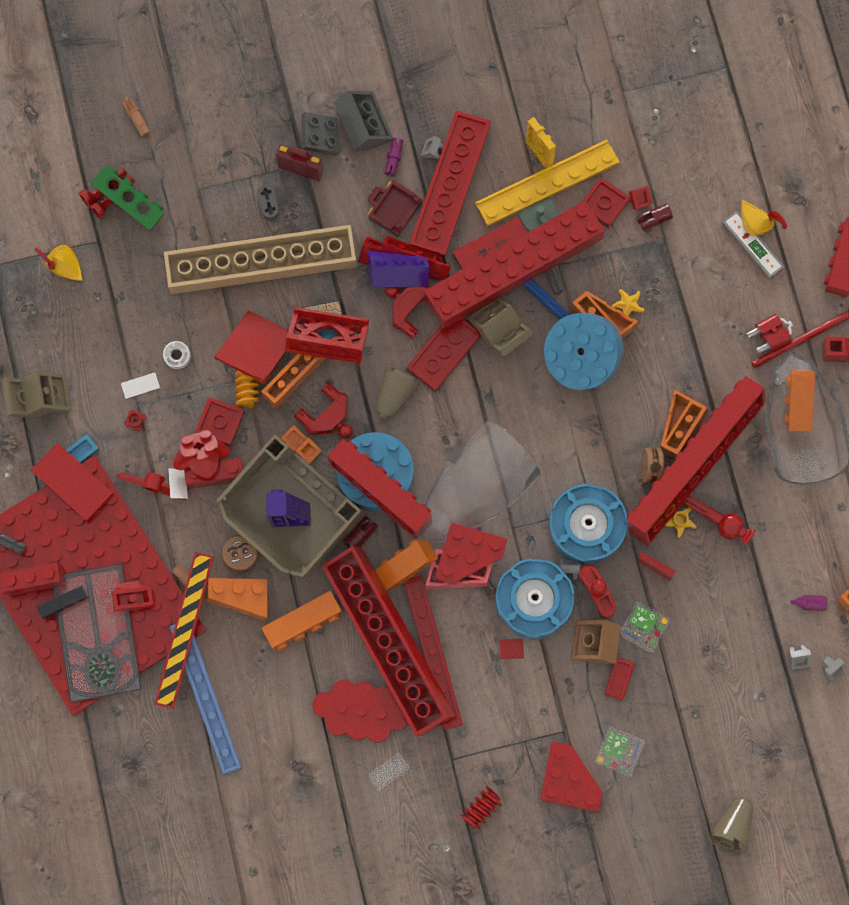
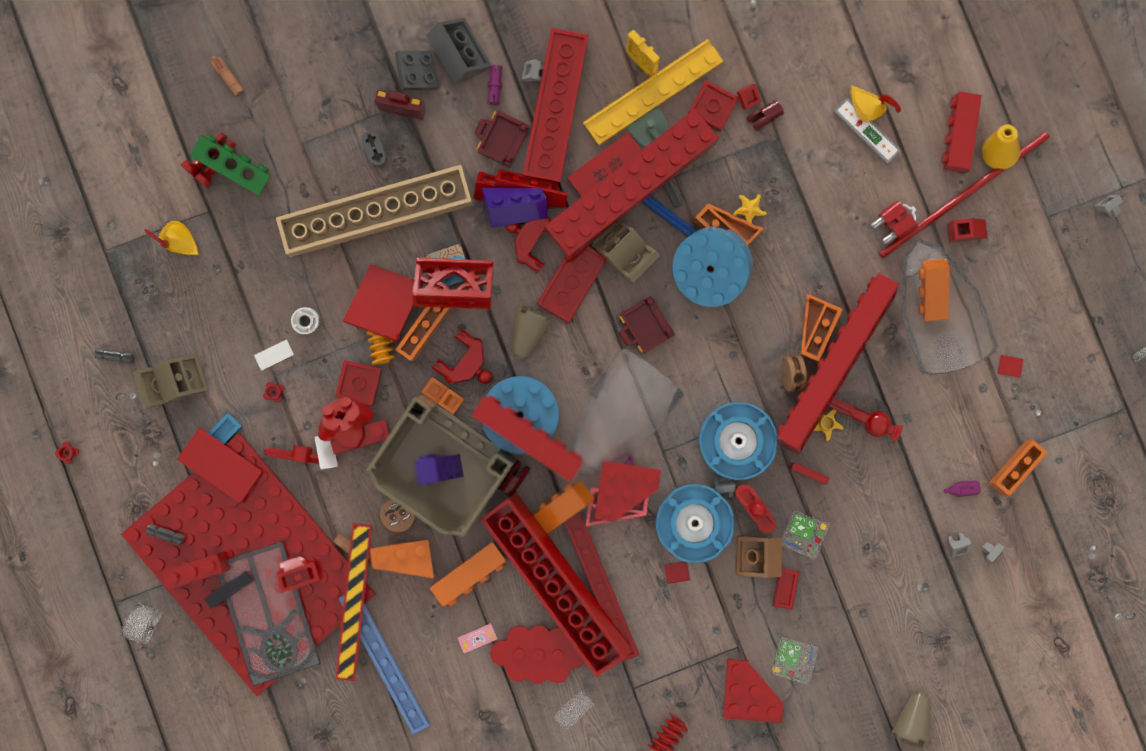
camera: 10 degrees left, 10 degrees up
(301, 688) = (477, 638): none -> bright pink sticker
(511, 403) = (645, 325): none -> dark red piece

